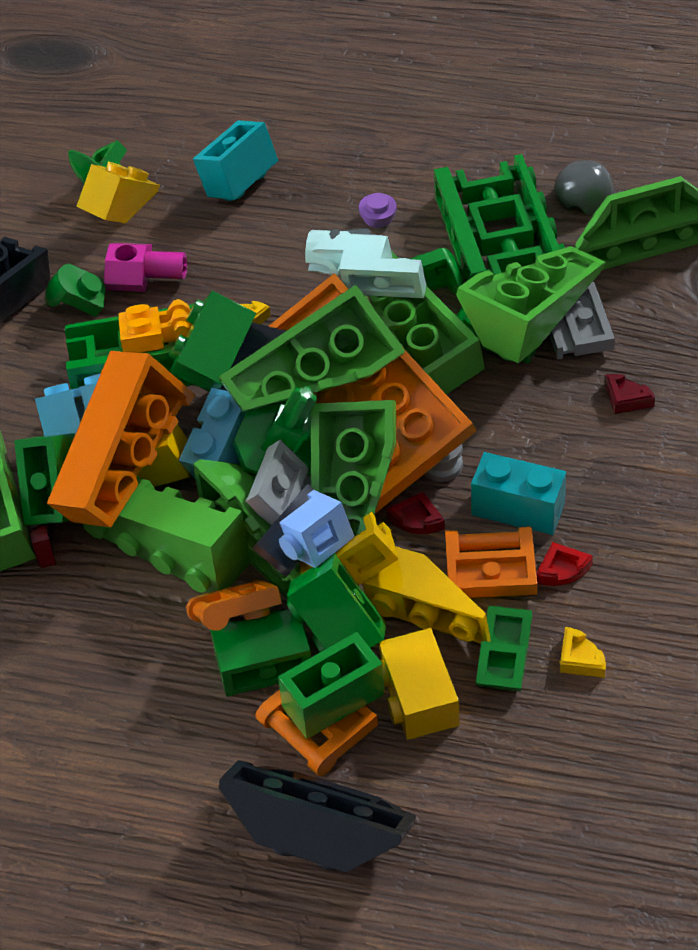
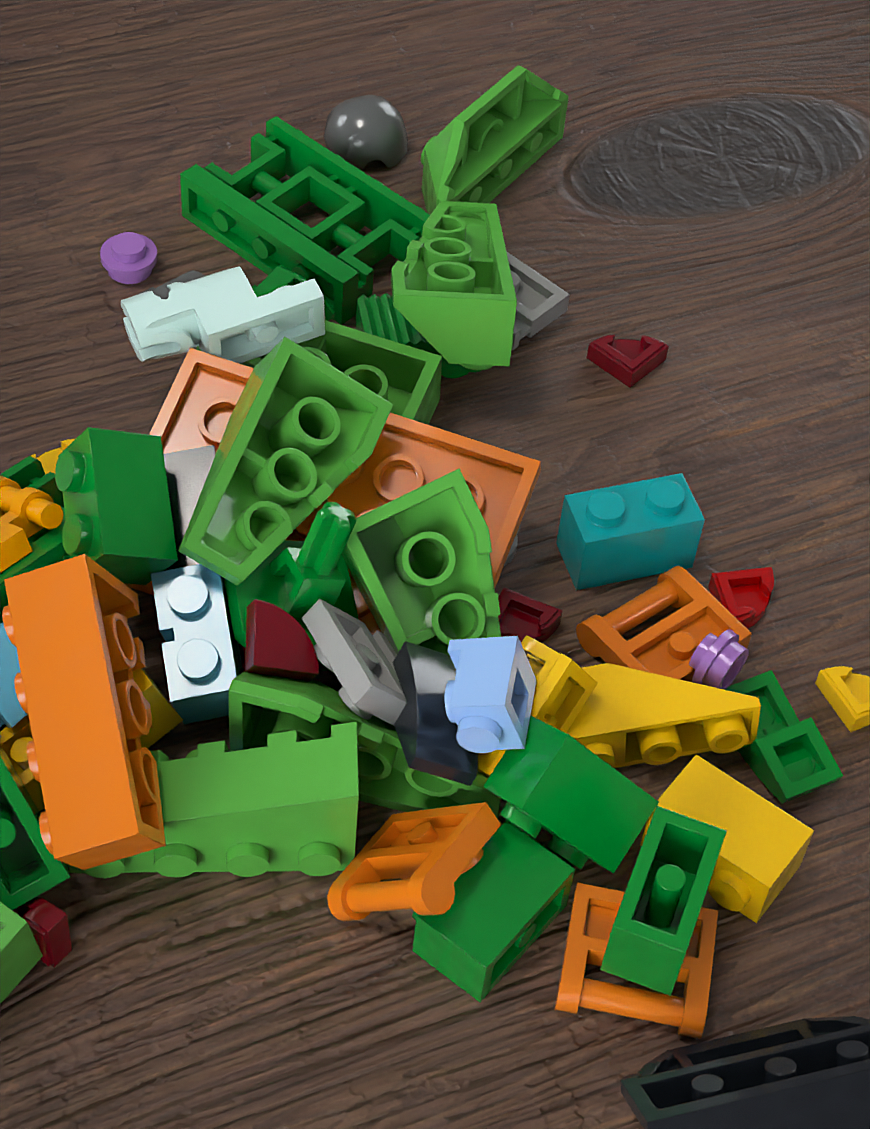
camera: 45 degrees left, 0 degrees up
(244, 454) = (277, 644): none -> dark red tile
(494, 587) = (718, 660): none -> medium lavender plate

